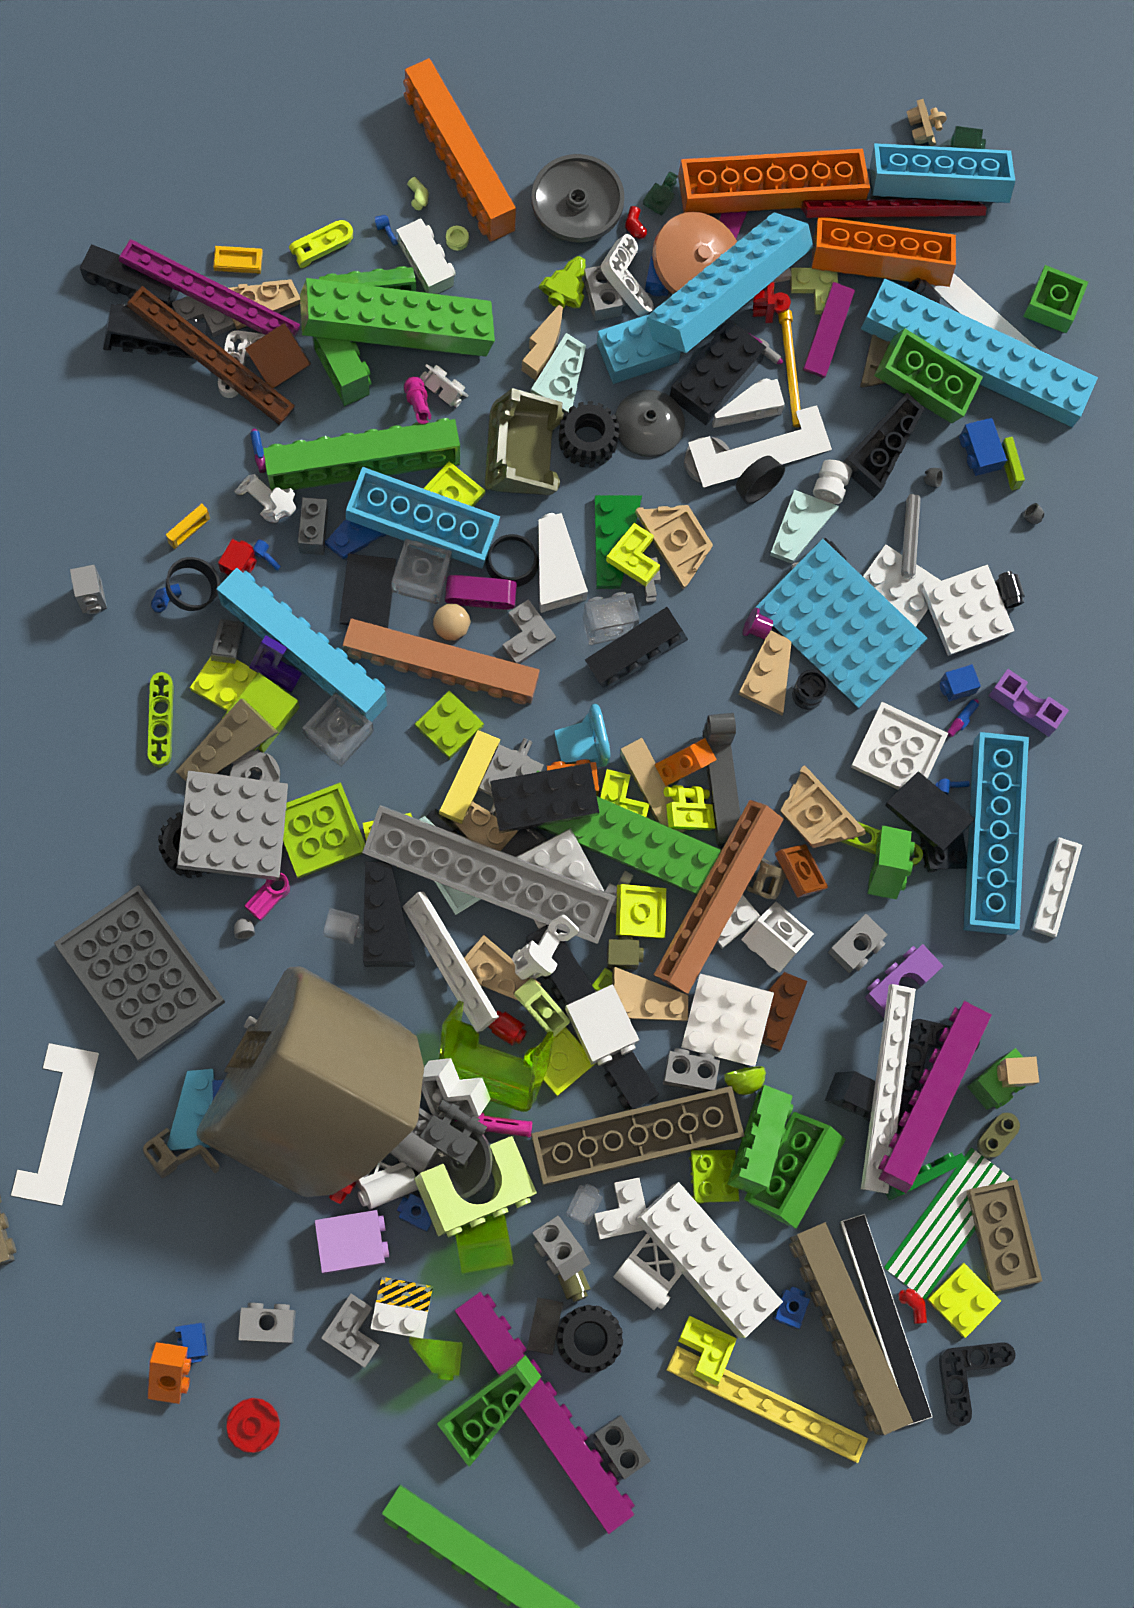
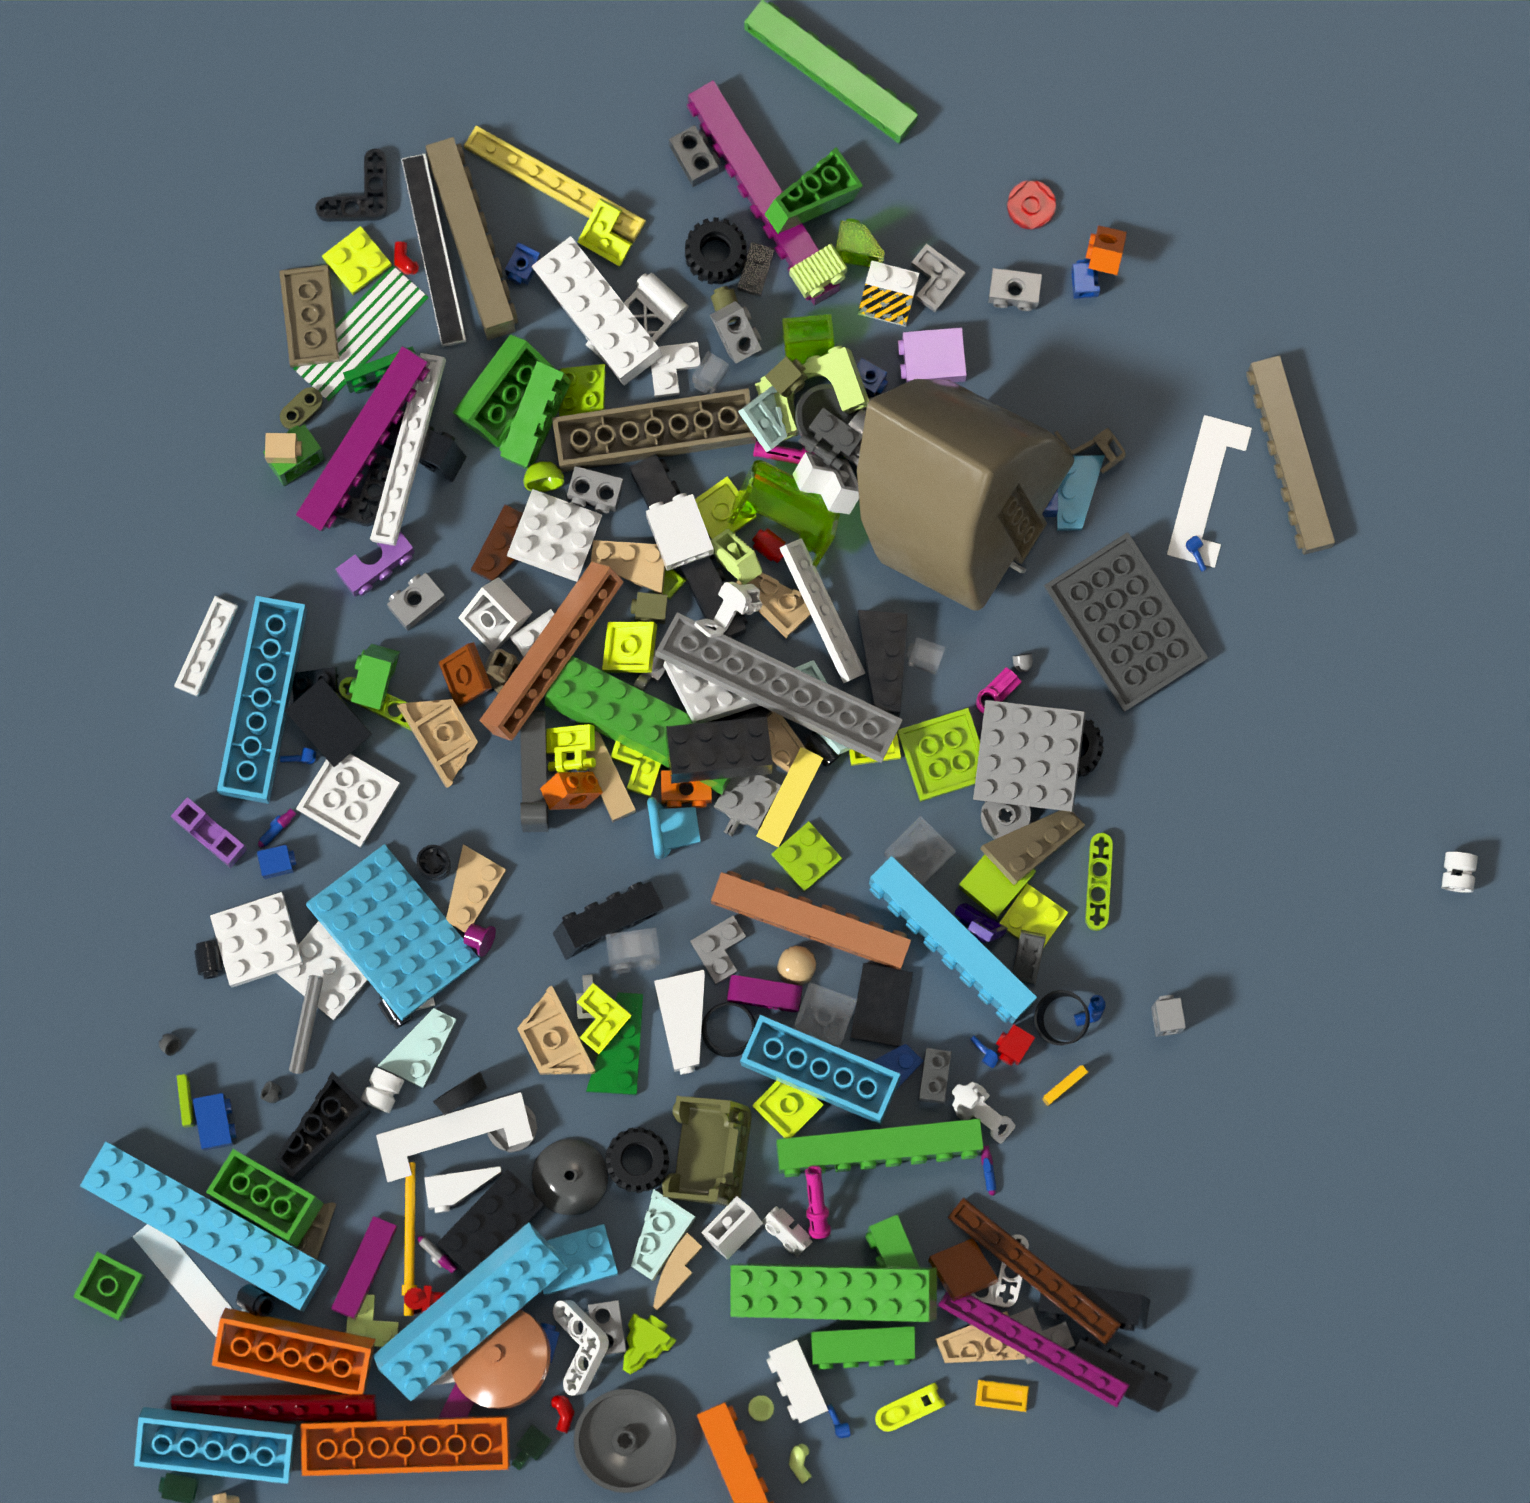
camera: 170 degrees left, 5 degrees up
(70, 1062) = (1192, 546): none -> blue hand
(478, 1318) = (818, 271): none -> yellowish green brick
(495, 379) = (732, 1227): none -> white brick
(503, 1195) = (787, 376): none -> olive brick
(523, 1150) = (765, 419): none -> light aqua wing

